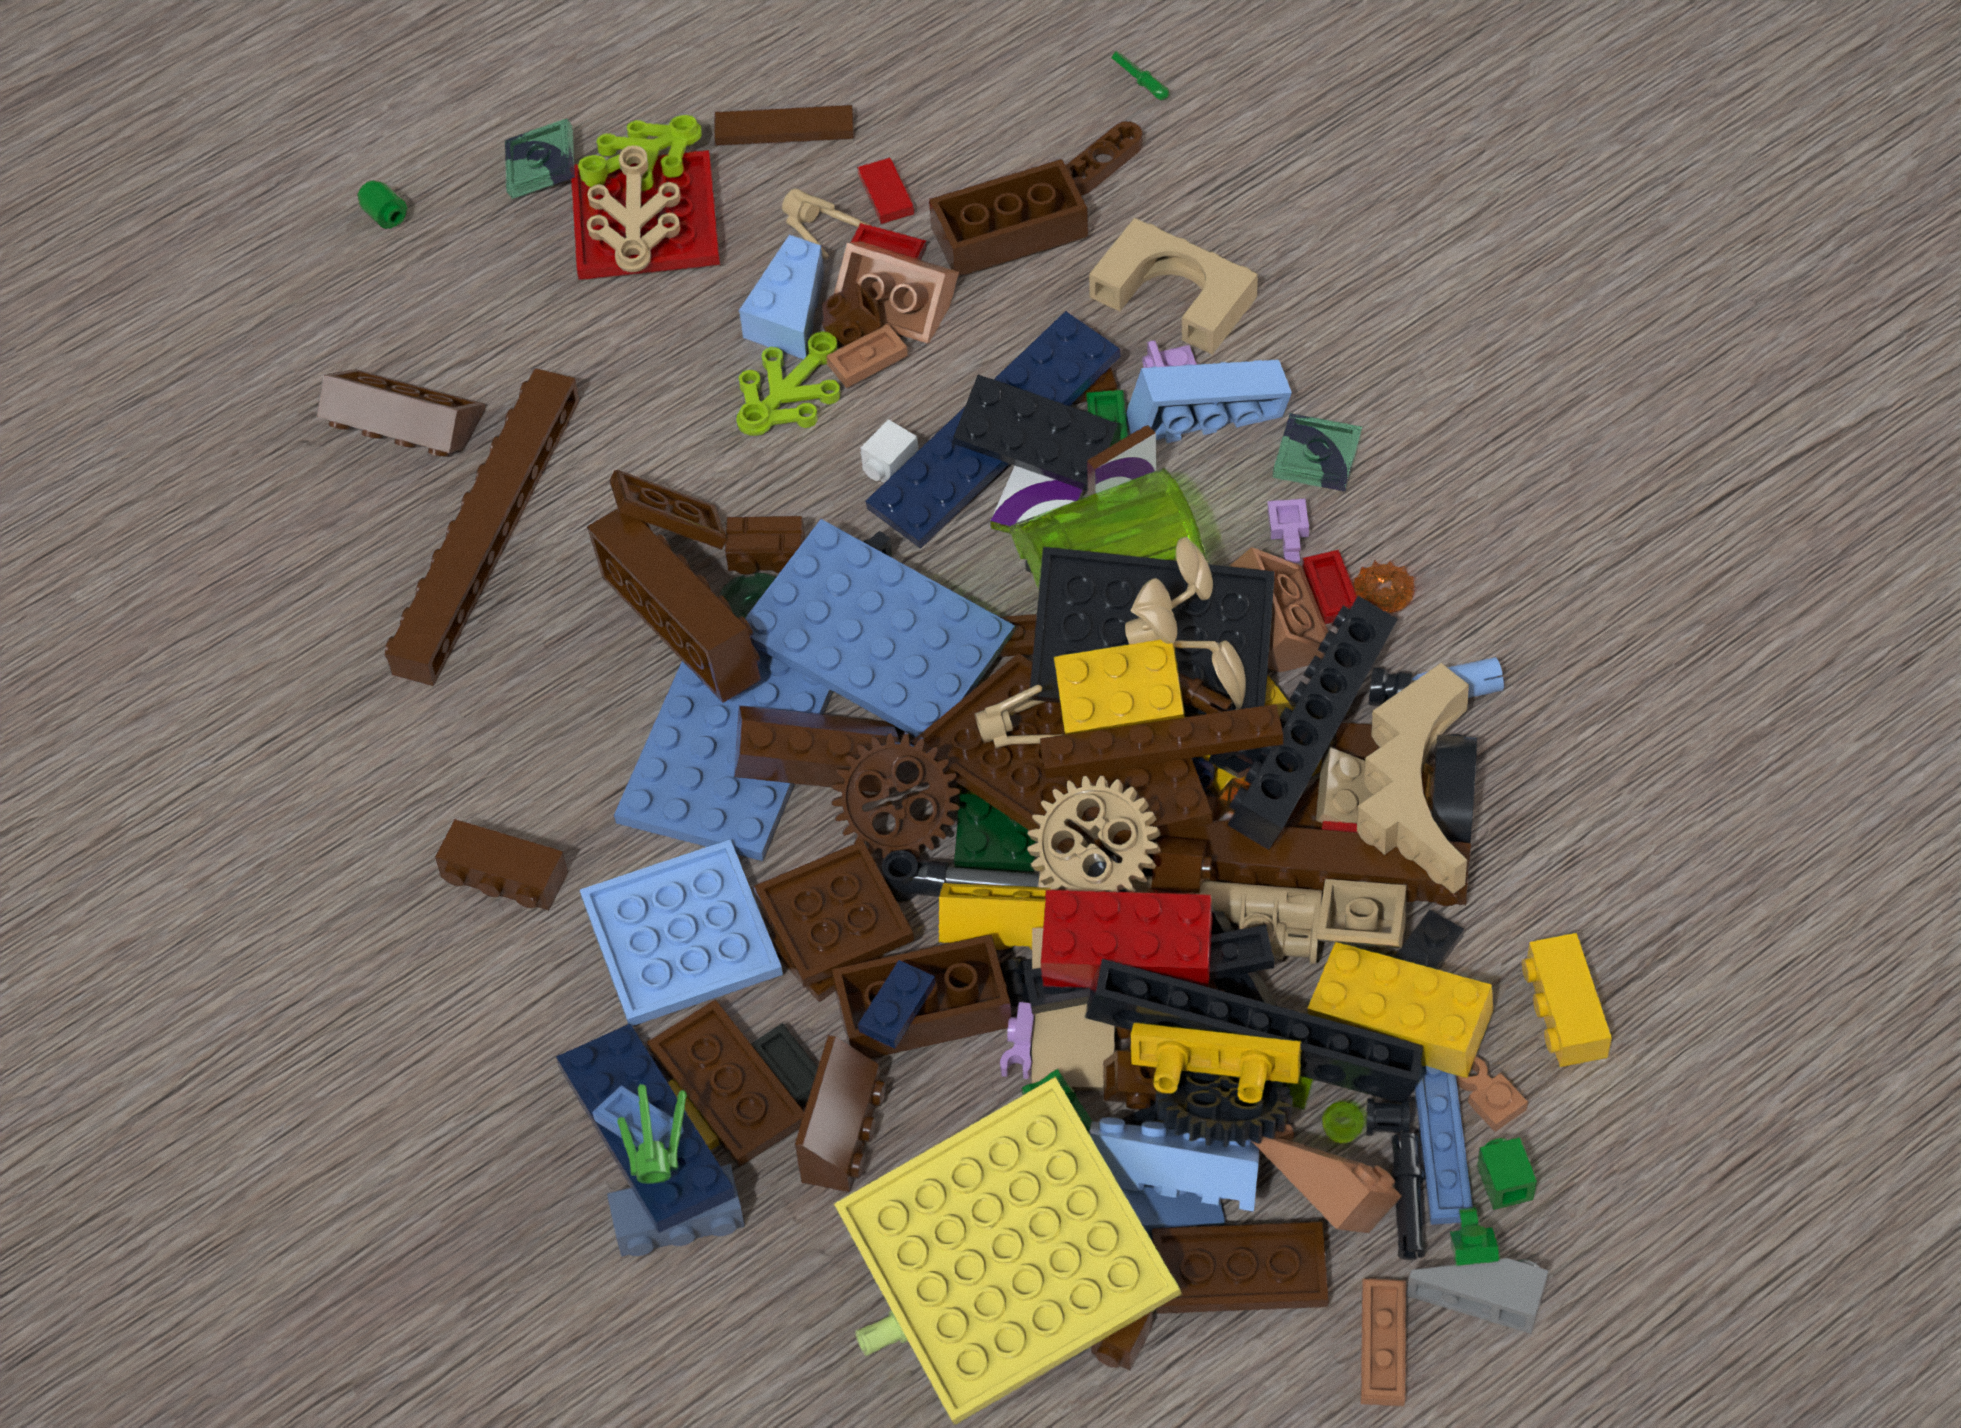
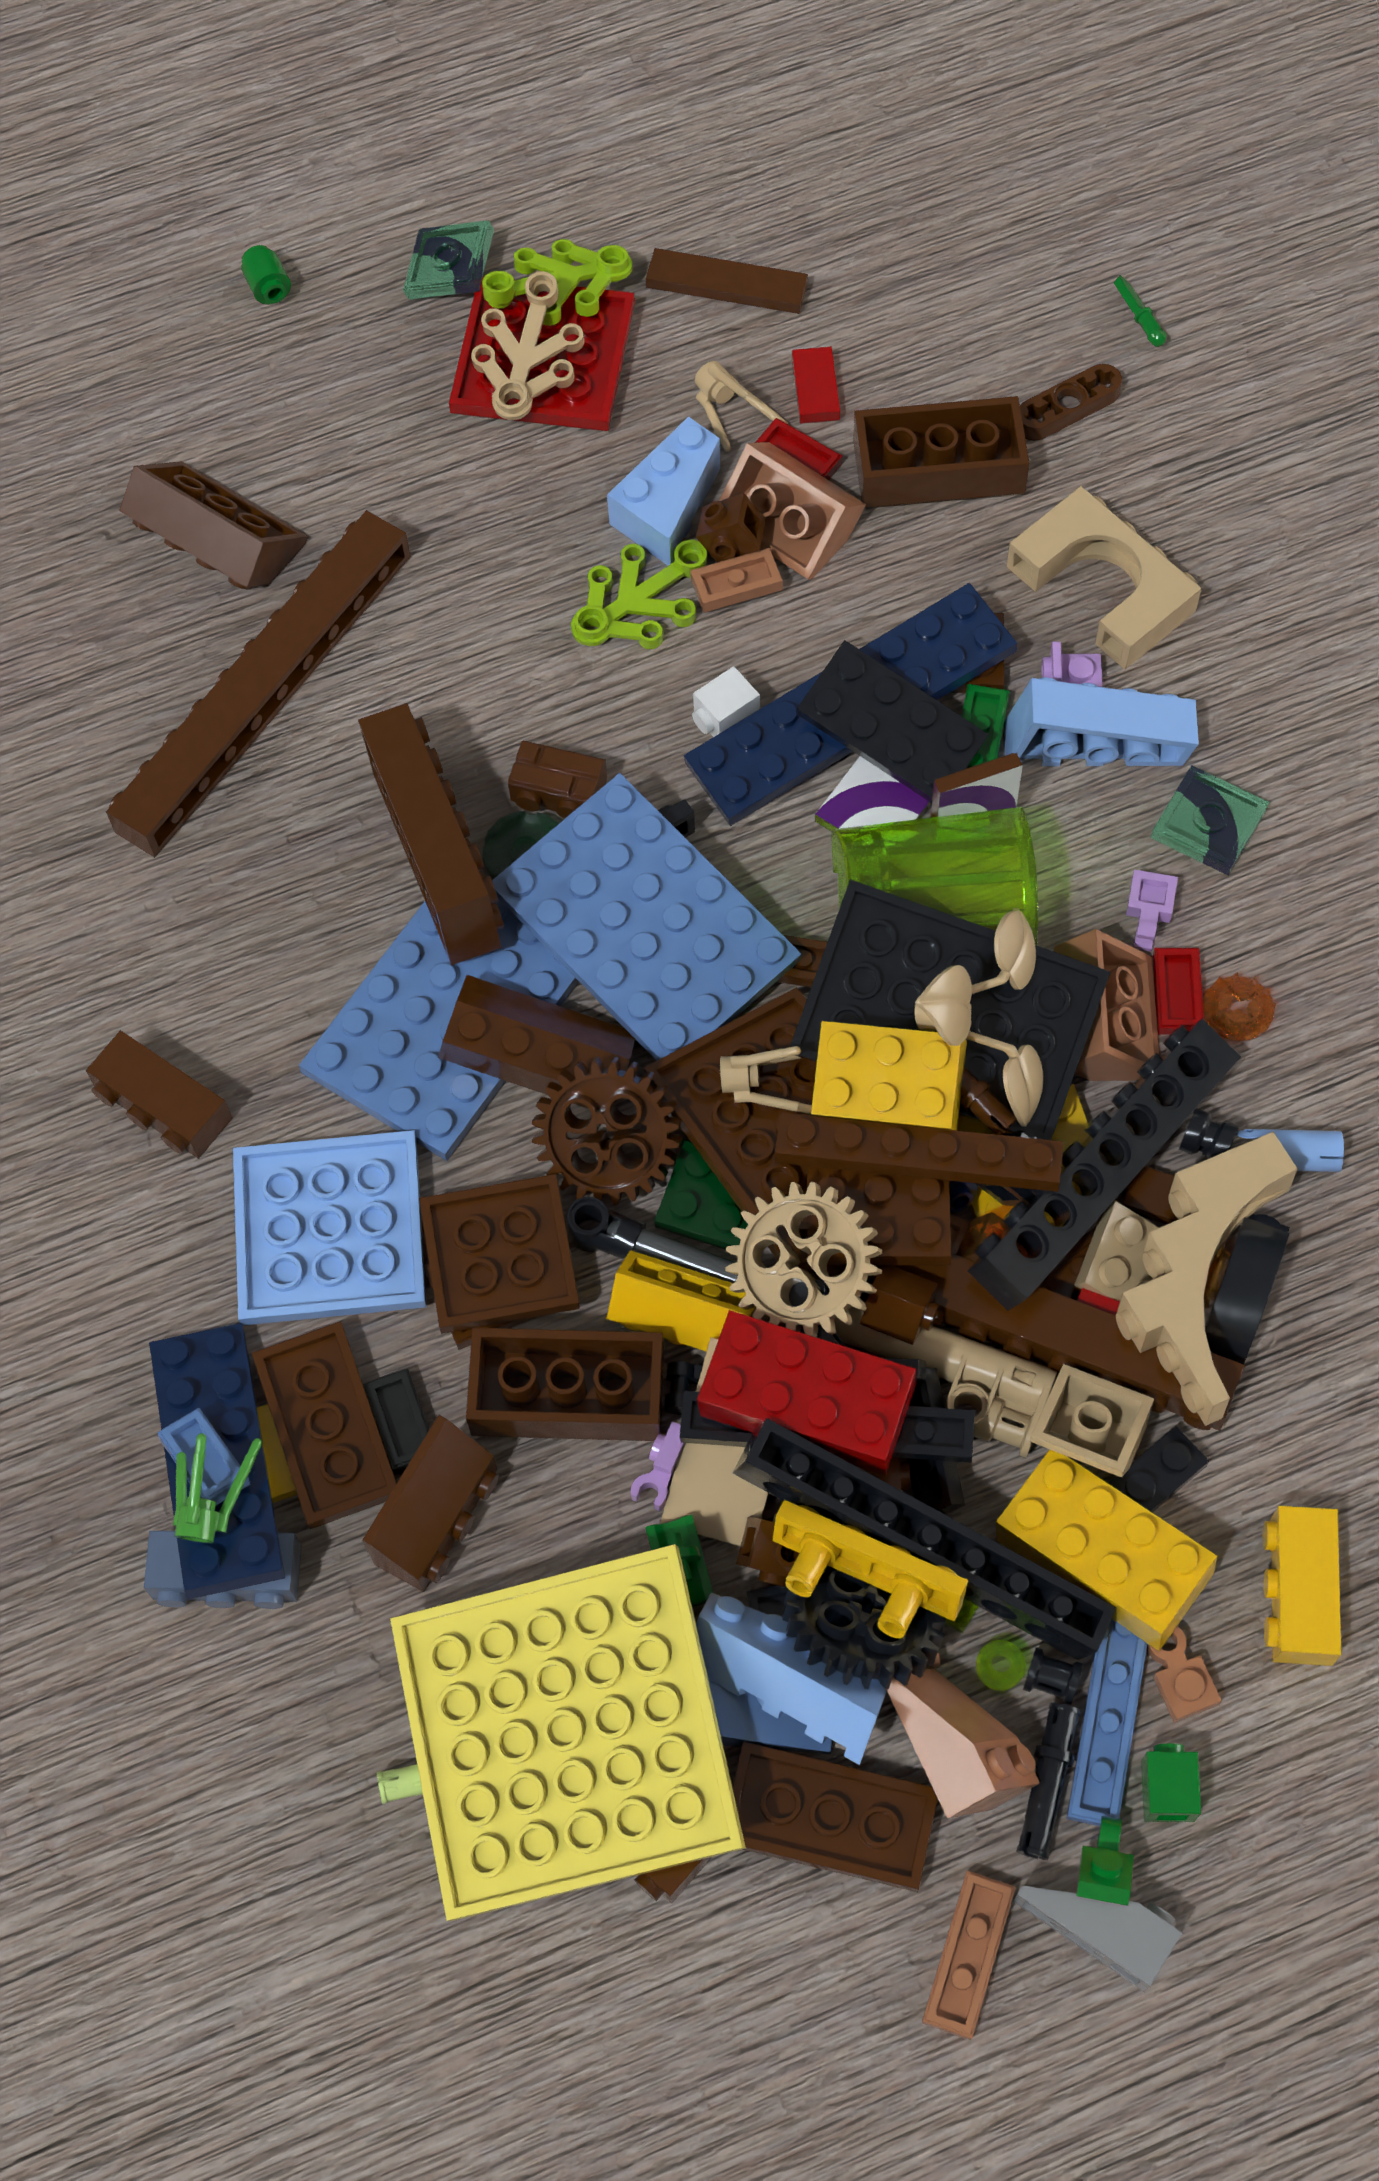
camera: 15 degrees right, 10 degrees up
(667, 509) = (456, 717): reddish brown tile -> none
(896, 1004) = (530, 1393): dark blue plate -> none

